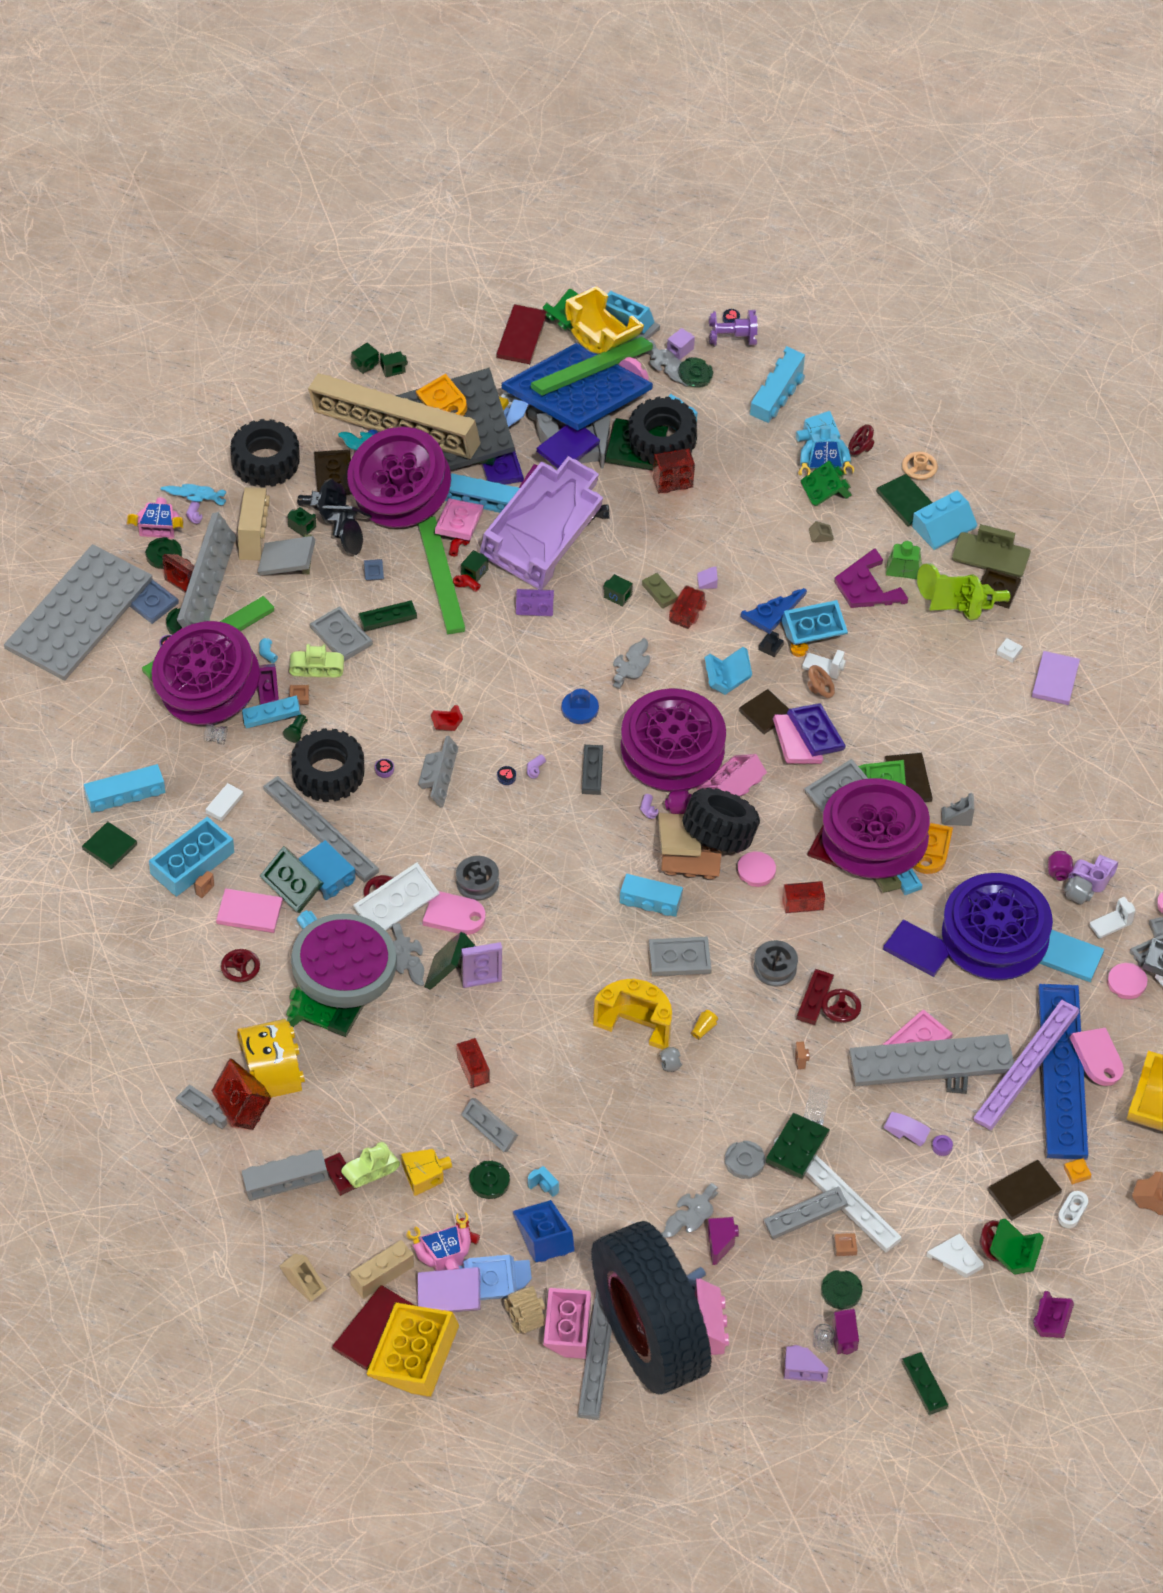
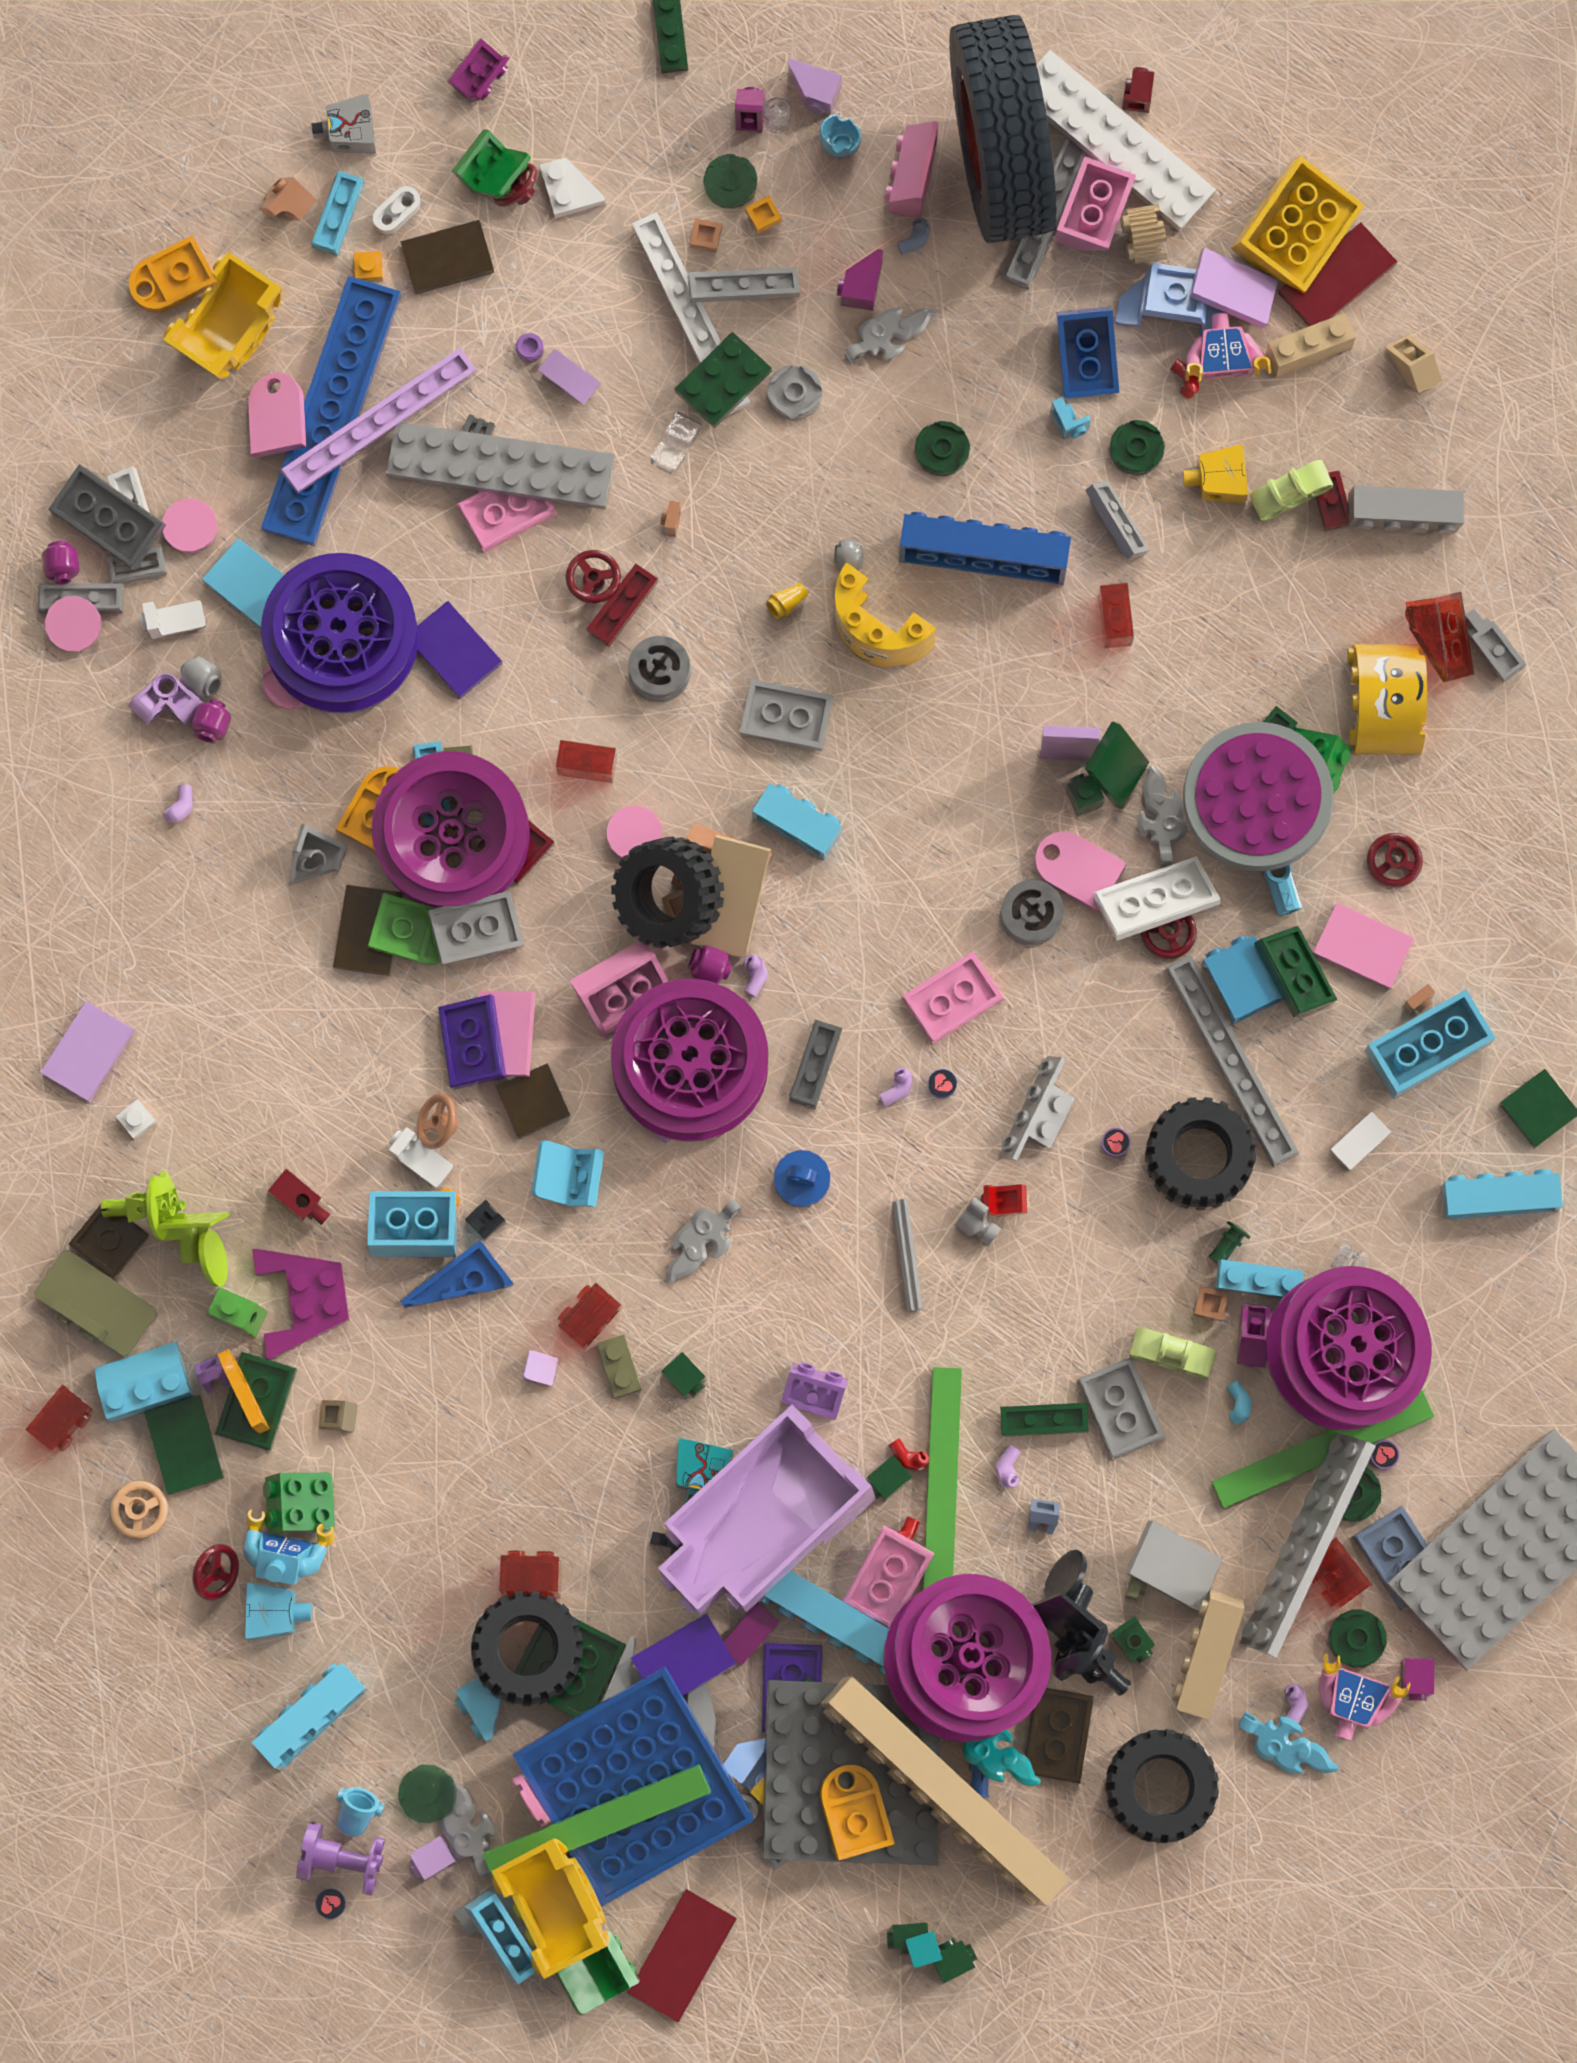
camera: 160 degrees left, 25 degrees up
(122, 538) = (1421, 1677): none -> magenta brick
(383, 351) = (923, 1949): none -> teal tile
(404, 589) = (1005, 1469): none -> lavender arm
(465, 703) = (974, 1222): none -> light grey piece
(499, 681) = (907, 1255): none -> light grey axle
(515, 824) = (952, 997): none -> bright pink tile
(559, 1419) = (1138, 90): none -> dark red brick
(567, 1379) = (1119, 141): none -> white plate
(577, 1077) = (984, 548): none -> blue brick
(591, 548) = (699, 1464): none -> teal torso
(628, 1147) = (942, 448): none -> dark green tile
(732, 354) = (357, 1810): none -> medium azure piece
(772, 1331) = (839, 136): none -> medium azure hair
(809, 1268) = (763, 214): none -> light orange plate
(873, 529) = (271, 1388): none -> dark green tile
(881, 516) = (243, 1391): none -> light orange tile
(893, 624) = (288, 1188): none -> dark red torso
(906, 533) = (210, 1370): none -> medium lavender tile
(985, 493) = (60, 1420): none -> clear red brick
(1056, 819) = (182, 807): none -> lavender arm
(1114, 1201) = (337, 213): none -> medium azure tile
(1130, 1256) = (348, 126): none -> light grey torso

